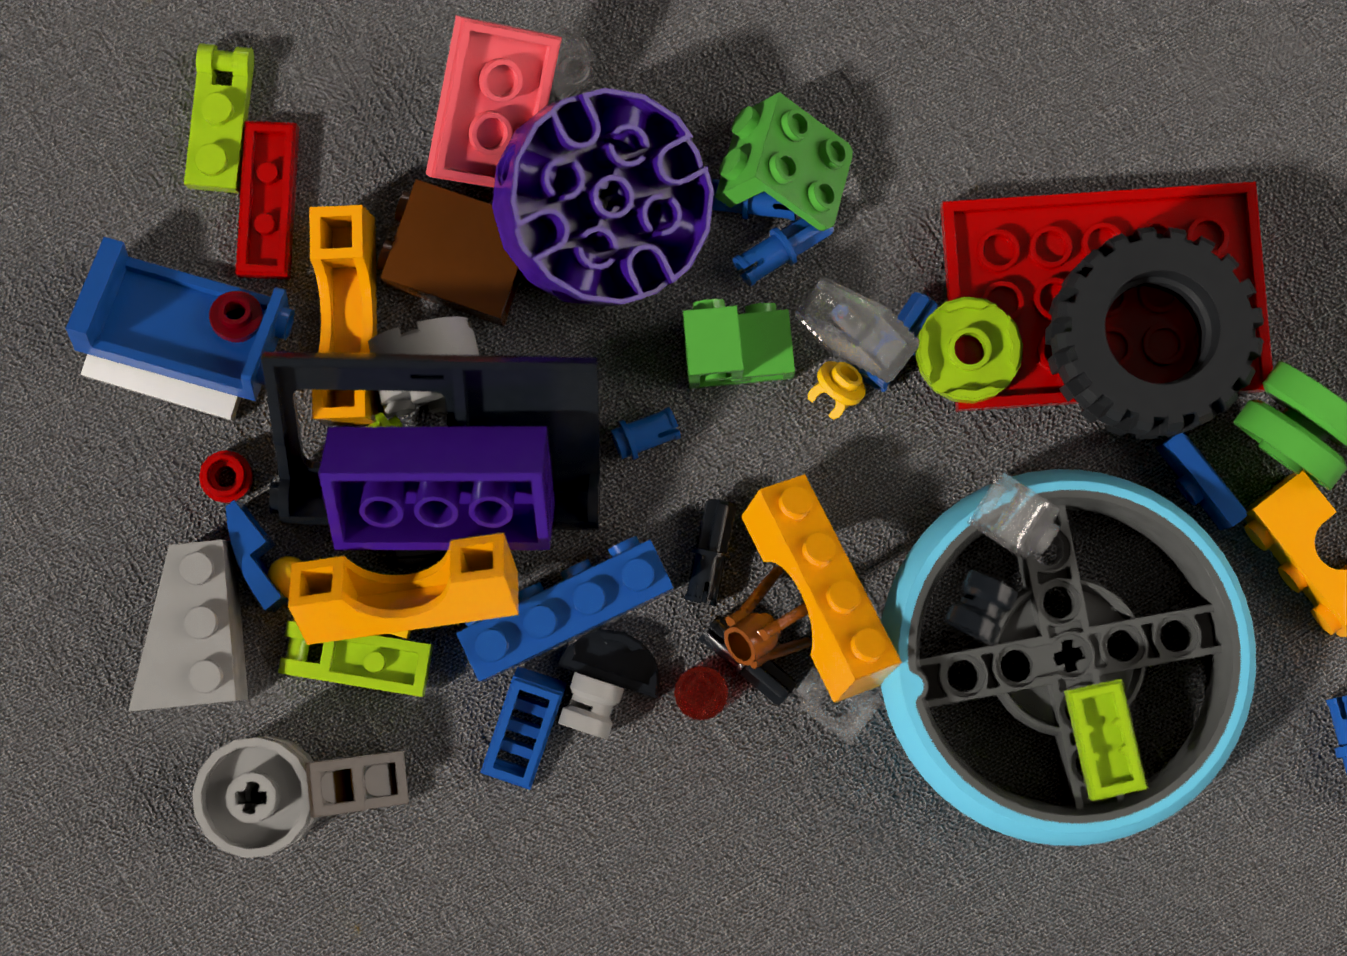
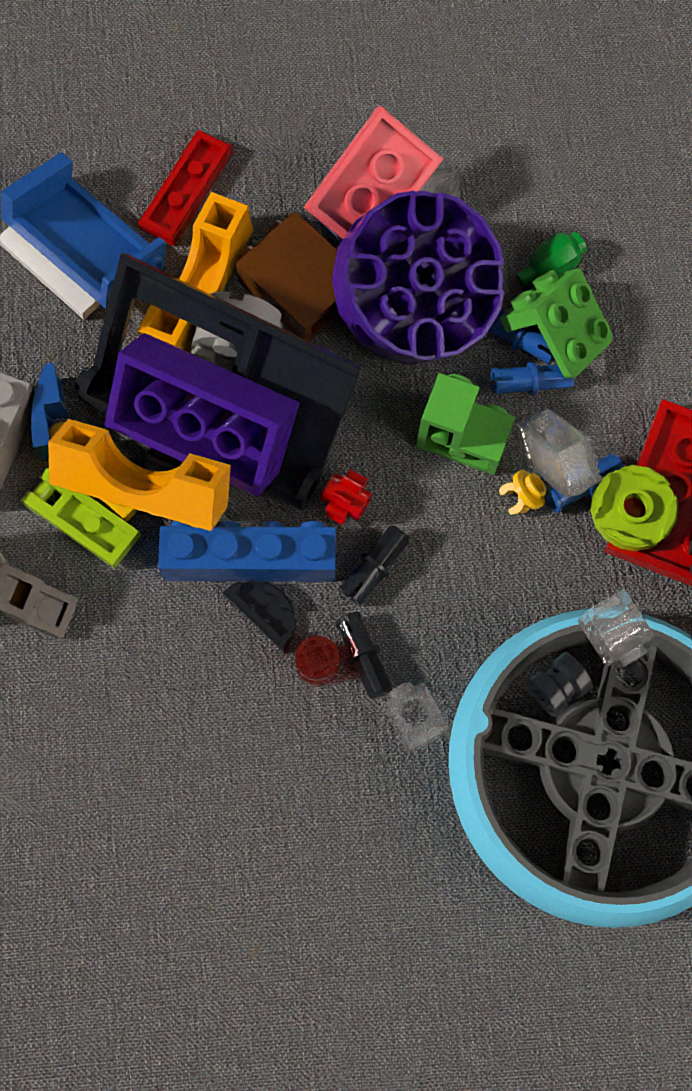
camera: 20 degrees right, 10 degrees down
(212, 468) = (54, 341): red plate -> none
(219, 119) = (181, 120): lime plate -> none
(239, 329) = (121, 241): dark red plate -> none
(538, 685) = (185, 636): blue slope -> none
(594, 693) = (232, 631): light grey wheel -> none
(642, 491) = (346, 497): none -> red gear
(645, 433) = (369, 459): blue pin -> none
(740, 84) = (557, 253): none -> green plant
(754, 636) = (378, 633): dark orange plant -> none
(846, 631) = (447, 666): light orange arch -> none
(1105, 739) = (610, 832): lime plate -> none

